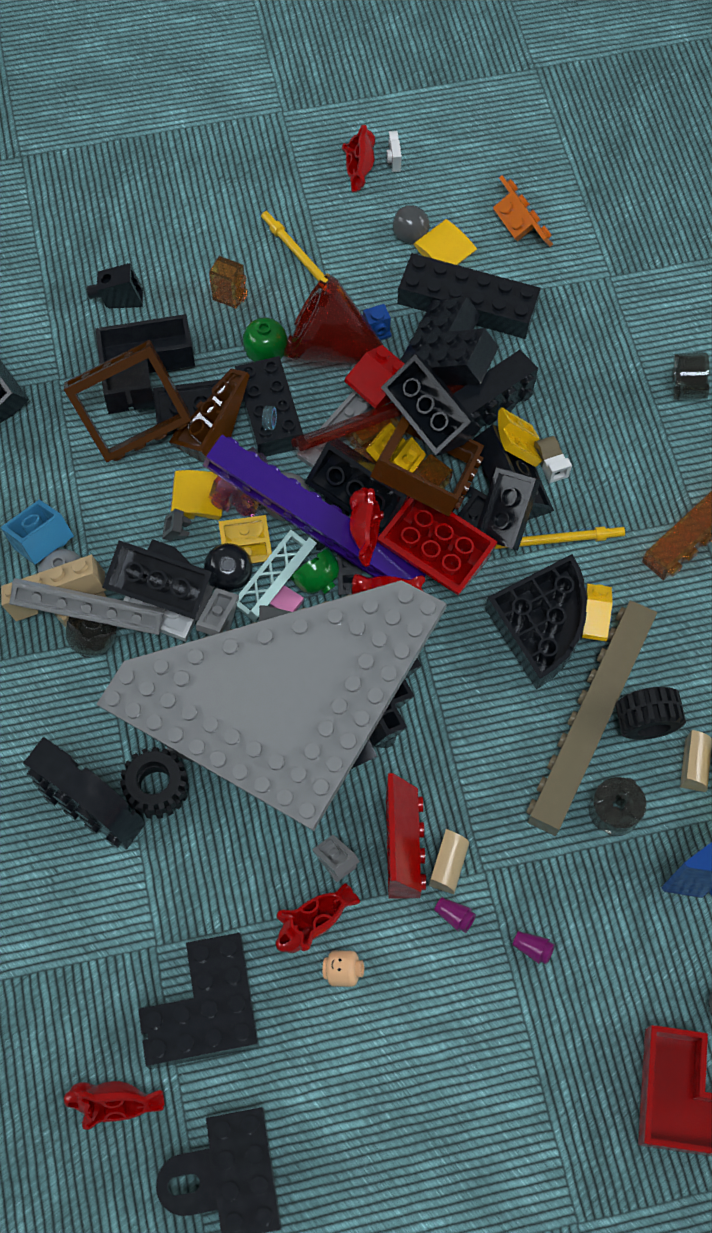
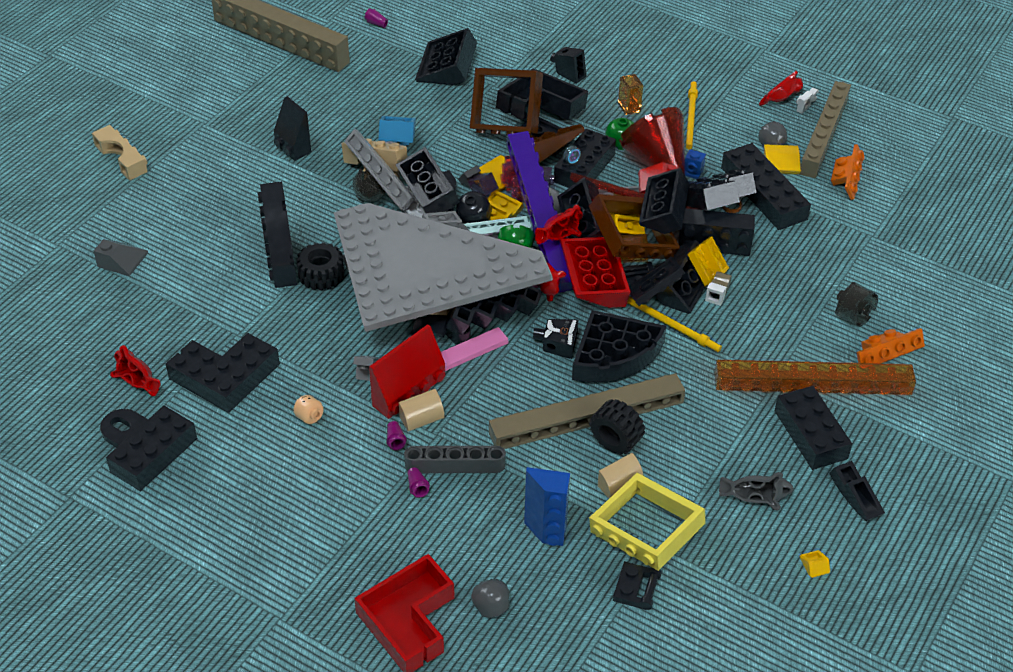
camera: 45 degrees right, 20 degrees down
(204, 527) = (483, 183): none -> clear purple brick
(312, 919) = (321, 377): red animal -> none
(409, 740) = (474, 348): none -> bright pink tile
(450, 176) = (825, 129): none -> dark tan brick
(477, 651) = (558, 336): none -> black torso
(548, 877) = (455, 459): none -> dark grey beam
(598, 612) = (649, 365): yellow slope -> none
(623, 793) = (545, 453): clear smoke brick -> none

